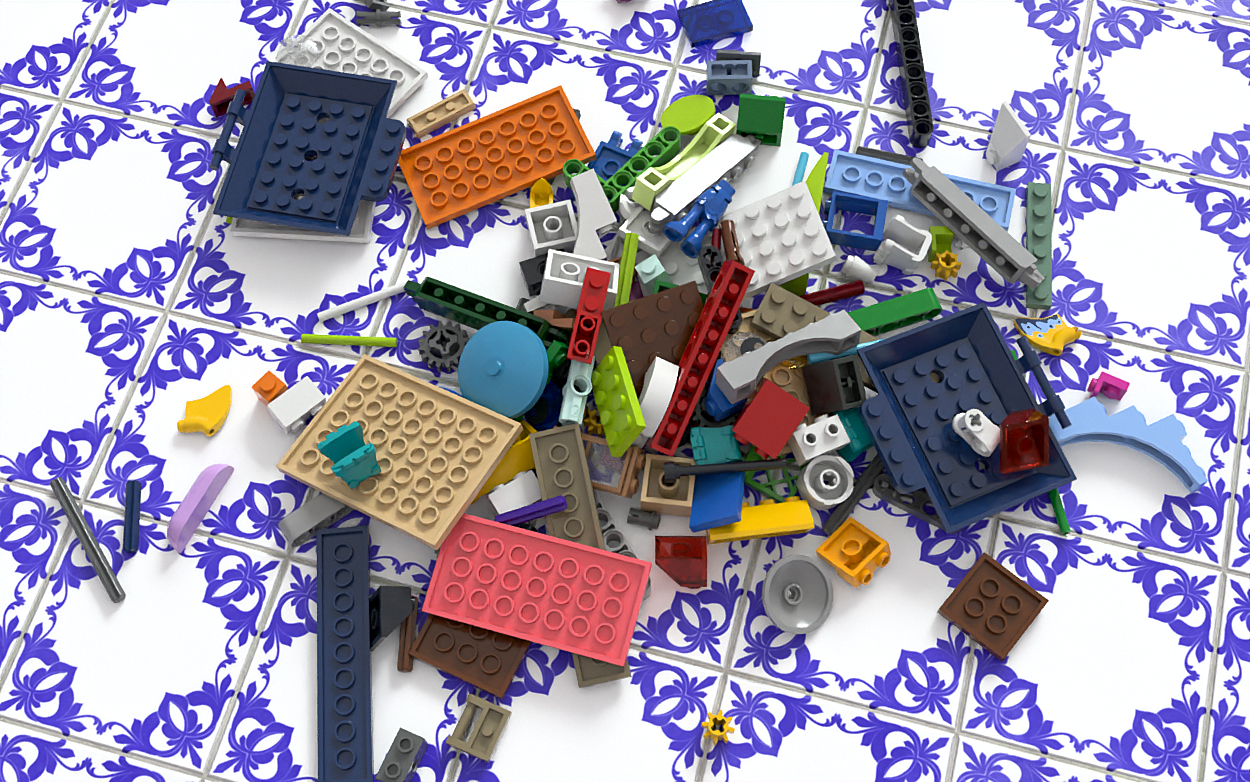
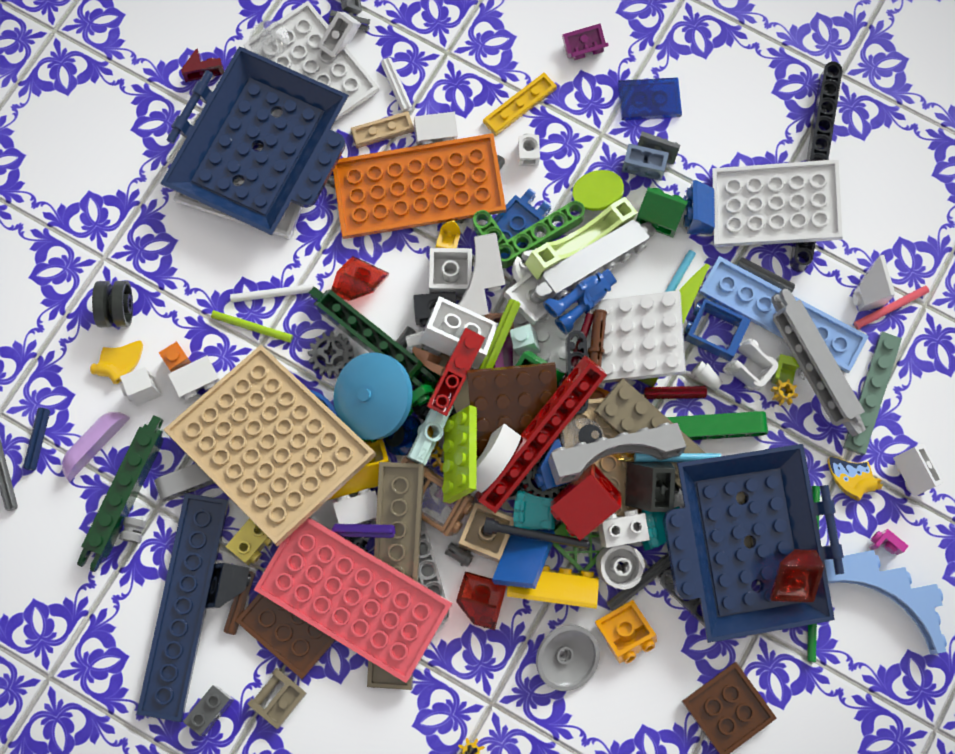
camera: 10 degrees right, 10 degrees up
(187, 350) = (112, 304): none -> pearl dark grey wheel
(238, 428) = (139, 386): none -> white brick
(244, 549) = (122, 493): none -> dark green hinge
(265, 585) = (132, 530): none -> light grey wheel
(351, 456) = (226, 444): teal piece -> none
(370, 28) = (338, 34): none -> white slope
(404, 562) = (248, 543): none -> light yellow brick
(444, 67) = (396, 85): none -> white axle
(452, 262) = (357, 279): none -> clear red slope
(497, 94) = (435, 128): none -> white brick
(580, 56) = (519, 104): none -> yellow tile
(603, 103) = (528, 158): none -> white brick
(800, 109) = (699, 209): none -> blue slope
(879, 83) = (777, 203): none -> white plate
(979, 431) = (760, 559): white piece -> none
(1030, 157) = (891, 307): none -> coral bar
(1112, 306) = (917, 470): none -> white brick

